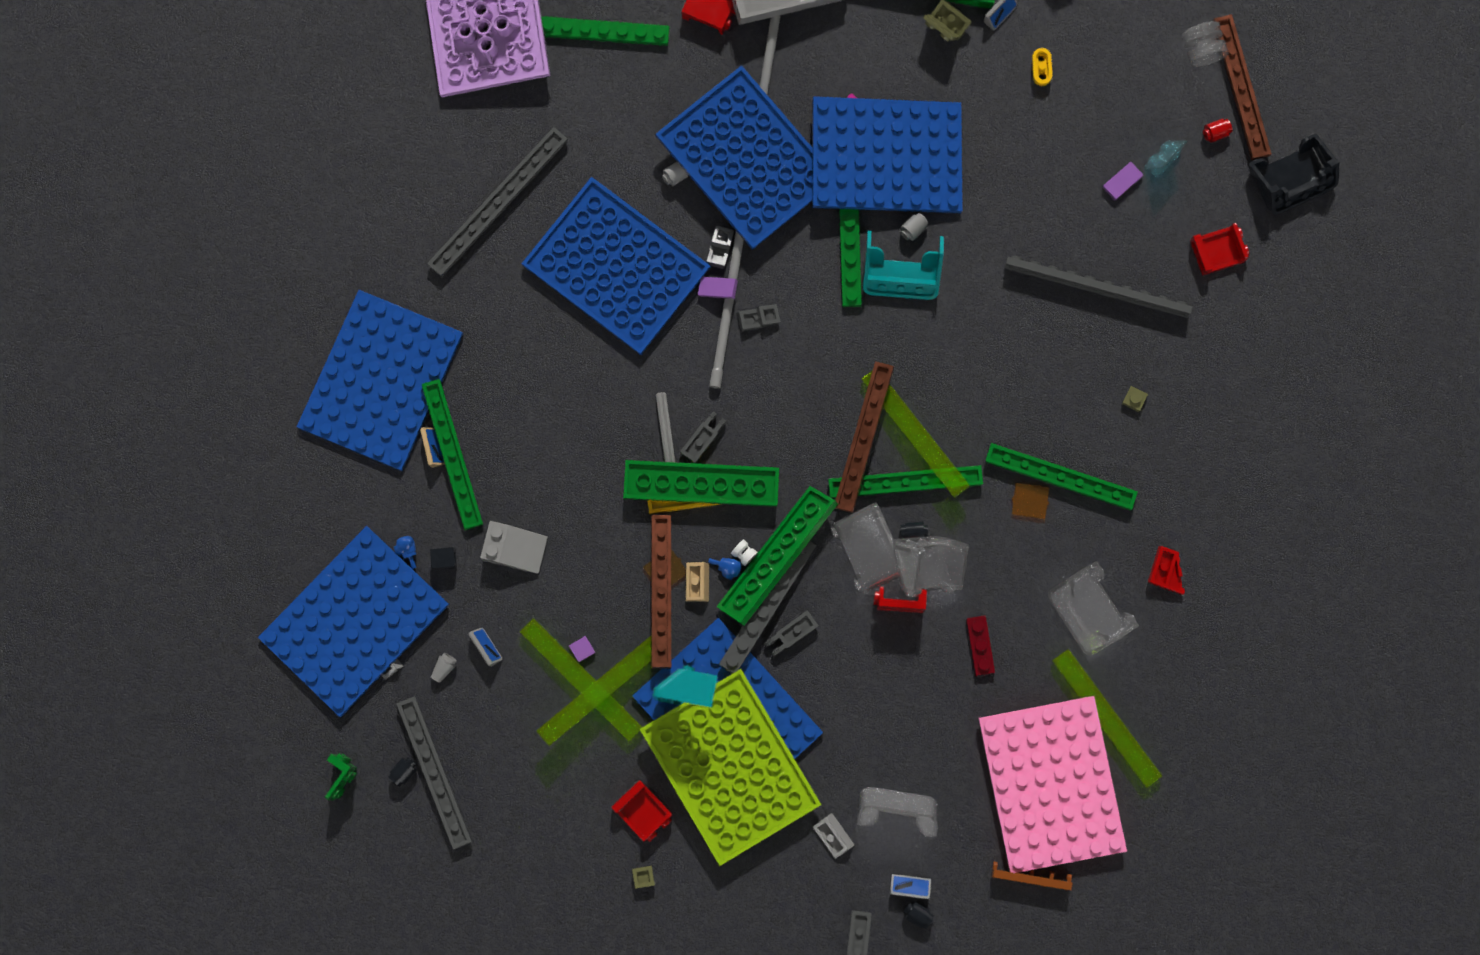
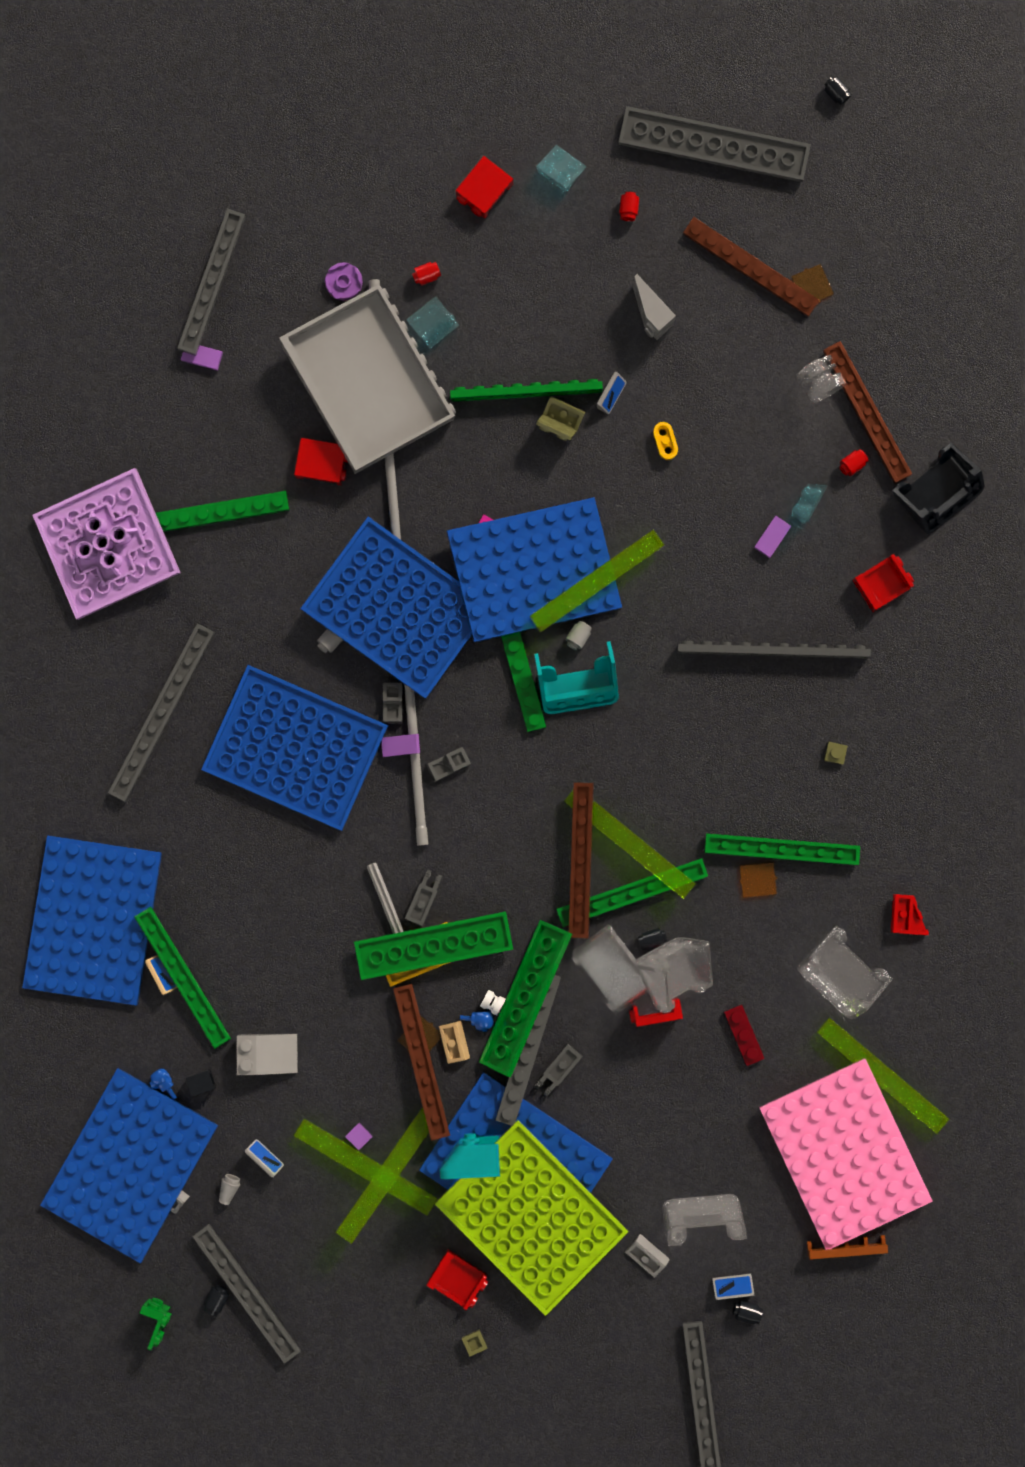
camera: 10 degrees left, 5 degrees up
(944, 178) = (596, 581): none -> clear neon green plate

